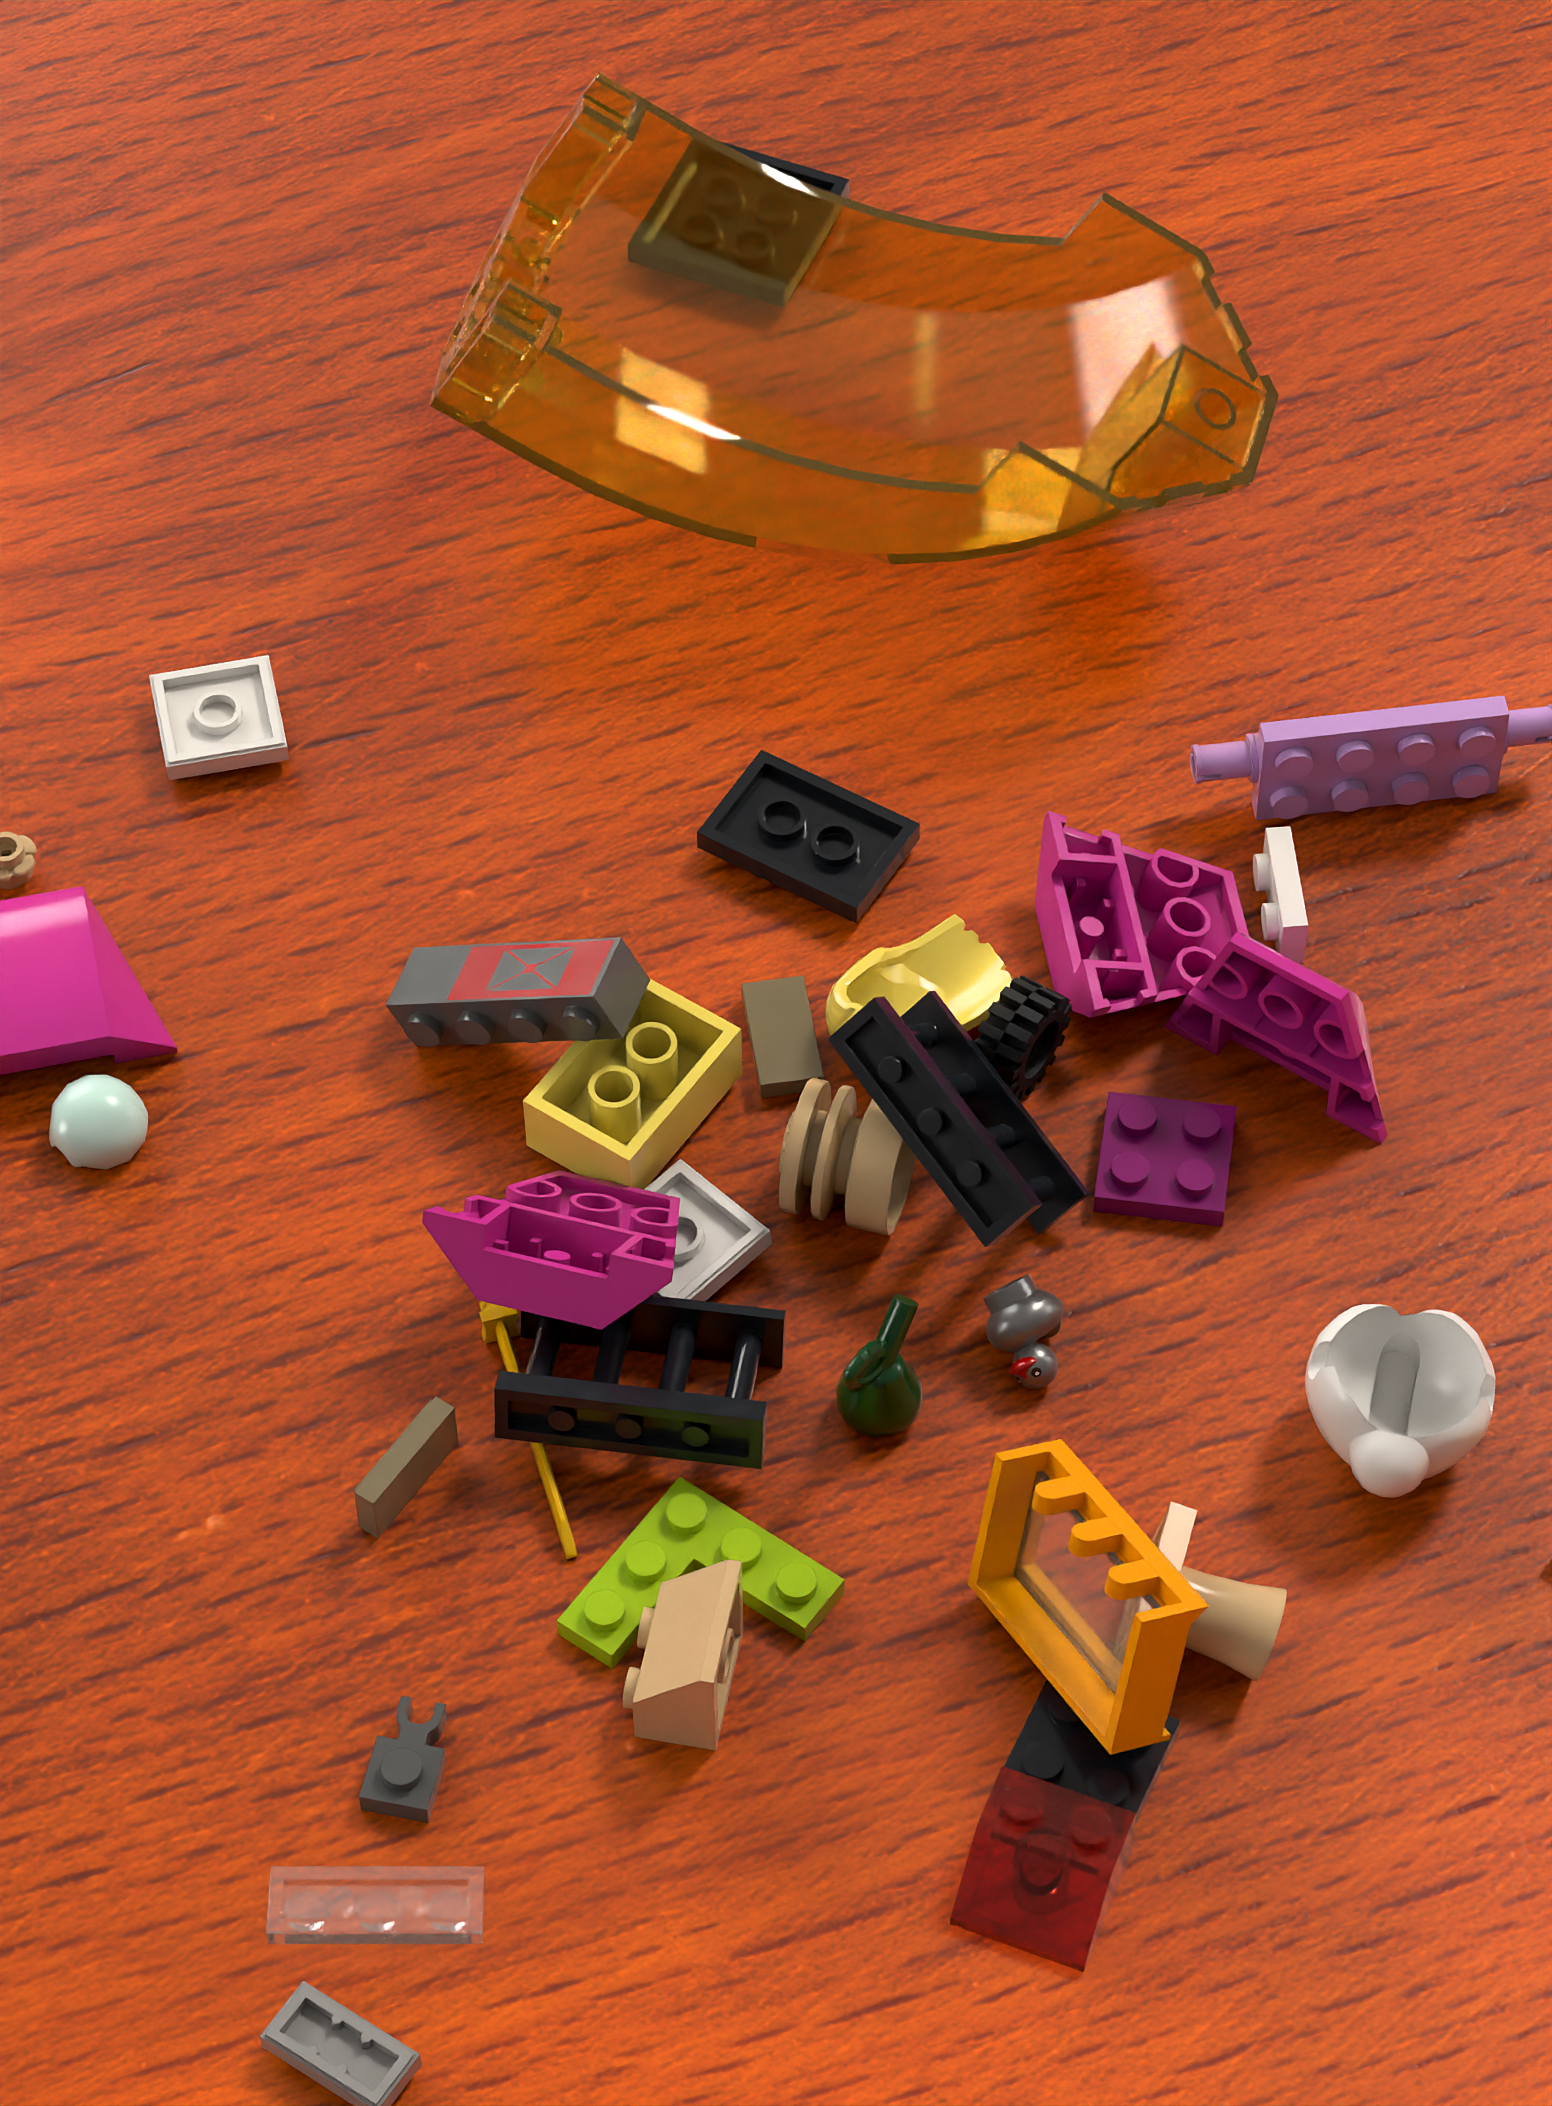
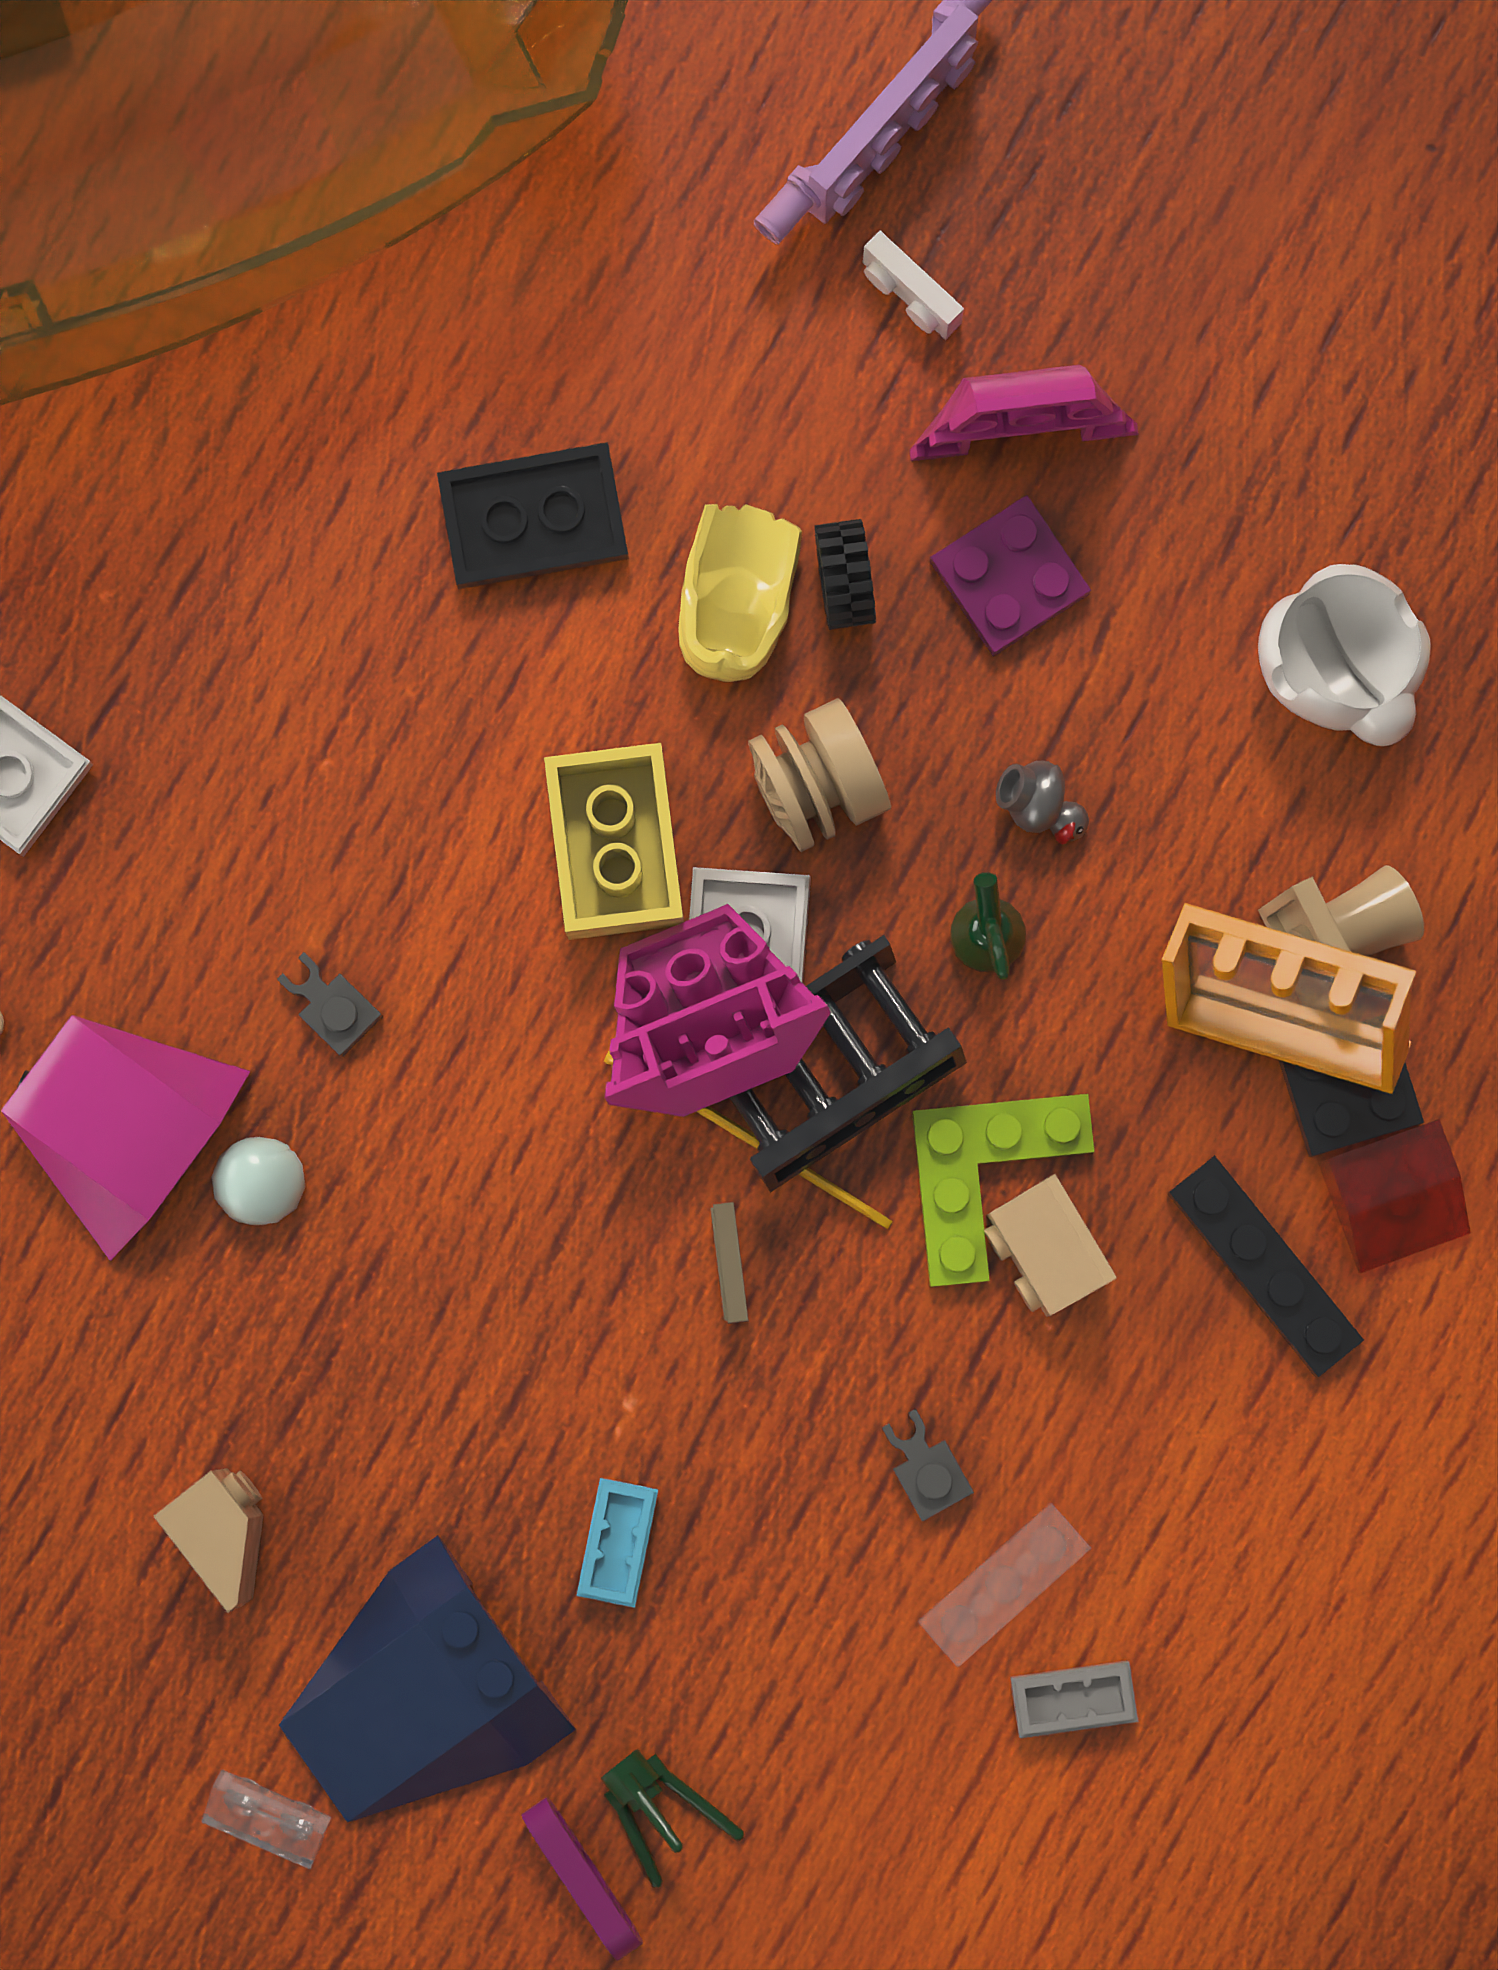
camera: 40 degrees left, 30 degrees up
(89, 1605) = (617, 1542): none -> medium azure plate
(289, 1053) = (335, 1010): none -> dark grey plate
(518, 992) = (478, 846): dark grey brick -> none
(781, 1035) = (663, 699): dark tan tile -> none
(867, 1846) = (1265, 1266): none -> black plate
(958, 1117) = (875, 722): black fence -> none
(1126, 921) = (835, 405): dark pink wedge -> none

